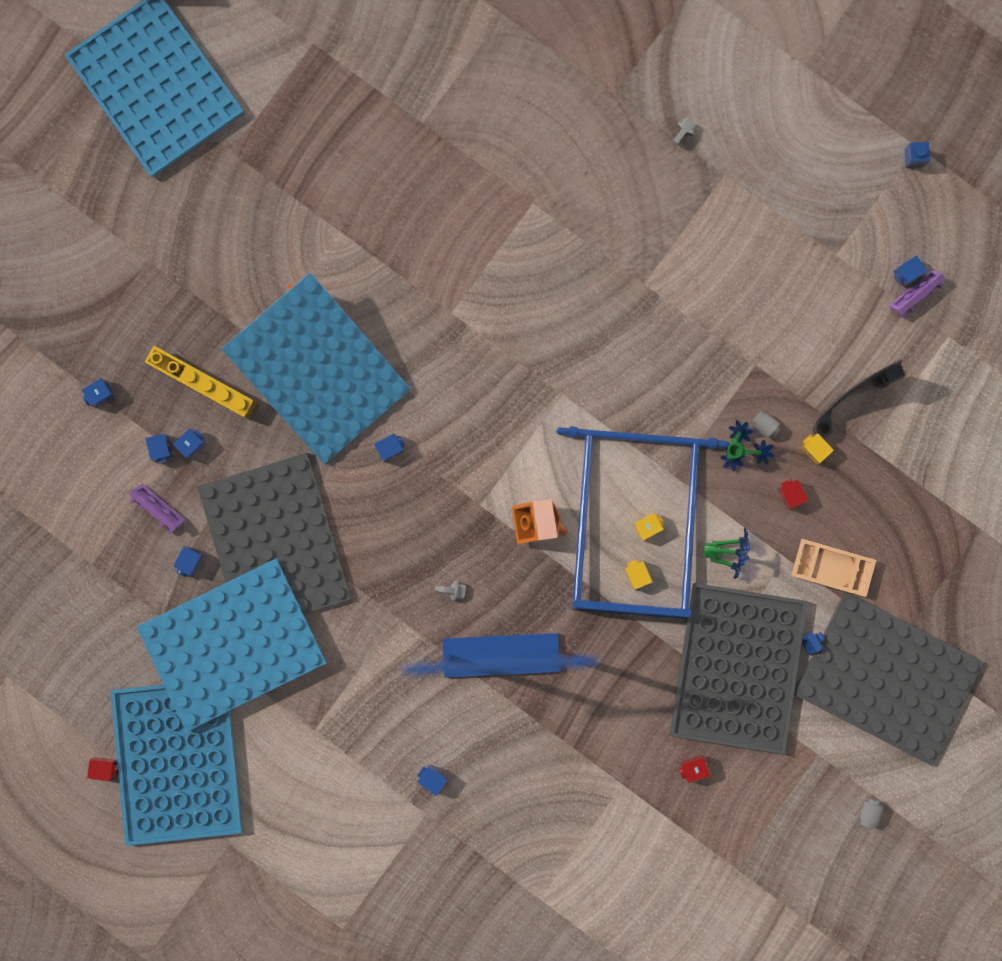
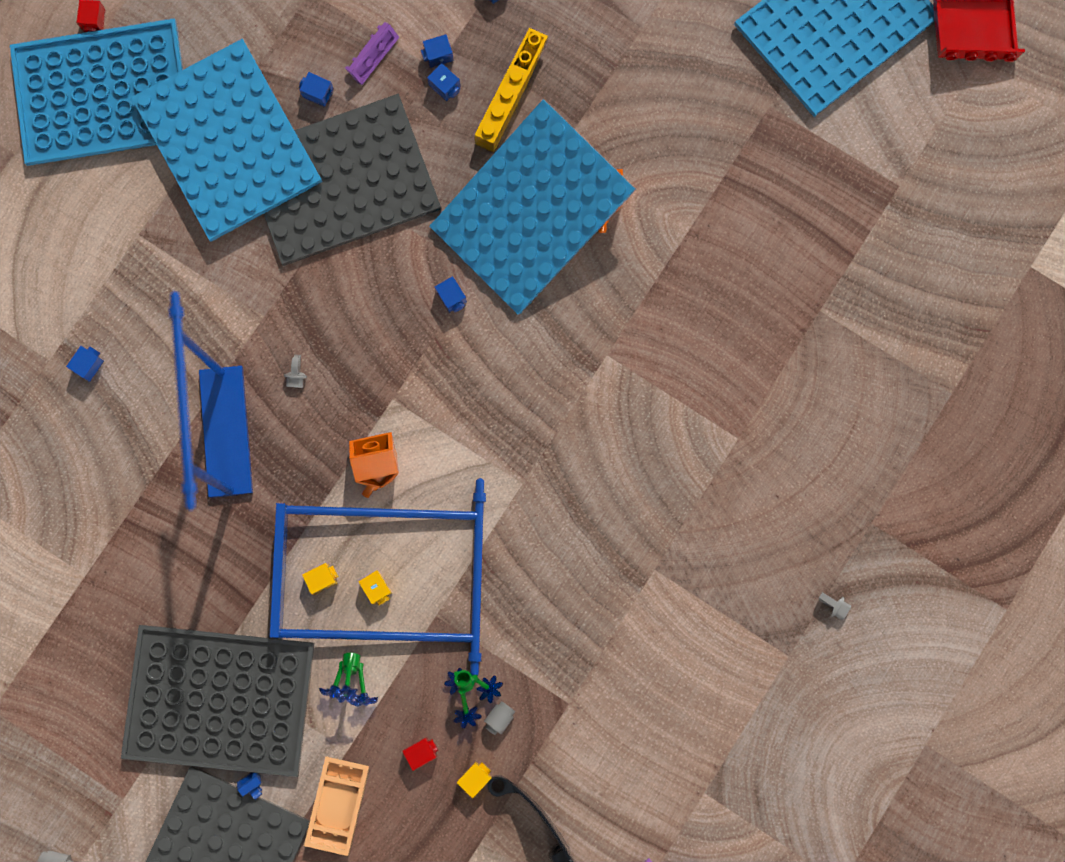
camera: 85 degrees right, 5 degrees down
(694, 769) = (102, 654): red brick -> none

